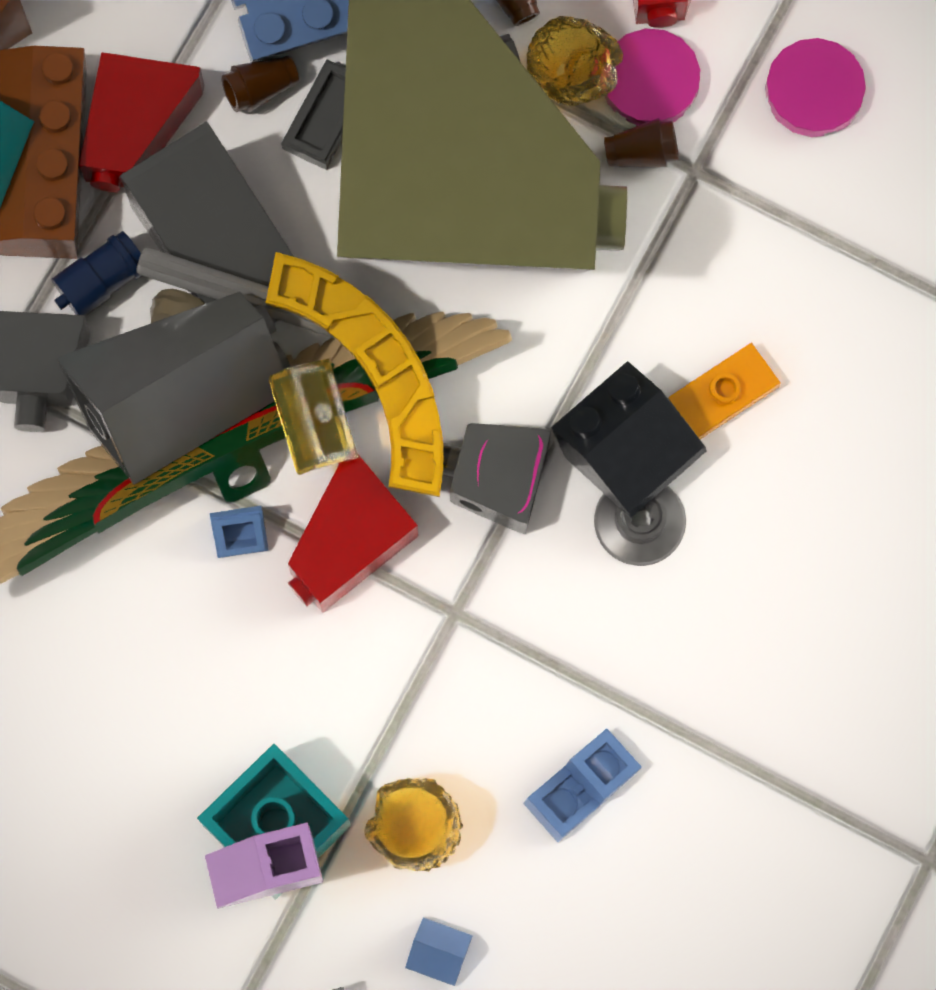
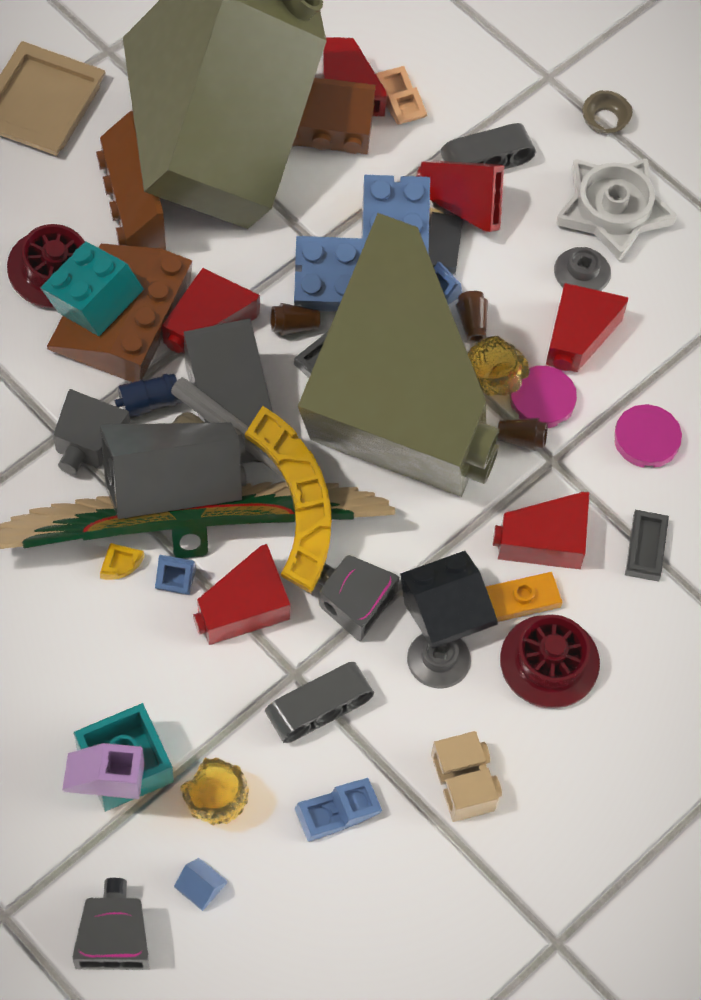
camera: 15 degrees right, 15 degrees down
(156, 537) = (120, 562): none -> yellow tile
(313, 416) = (248, 514): clear yellow slope -> none
(504, 646) = (319, 702): none -> dark grey beam
(723, 656) = (463, 768): none -> tan piece
(726, 288) = (545, 533): none -> red slope
(790, 472) = (549, 661): none -> dark red piece
(866, 254) = (646, 545): none -> dark grey tile

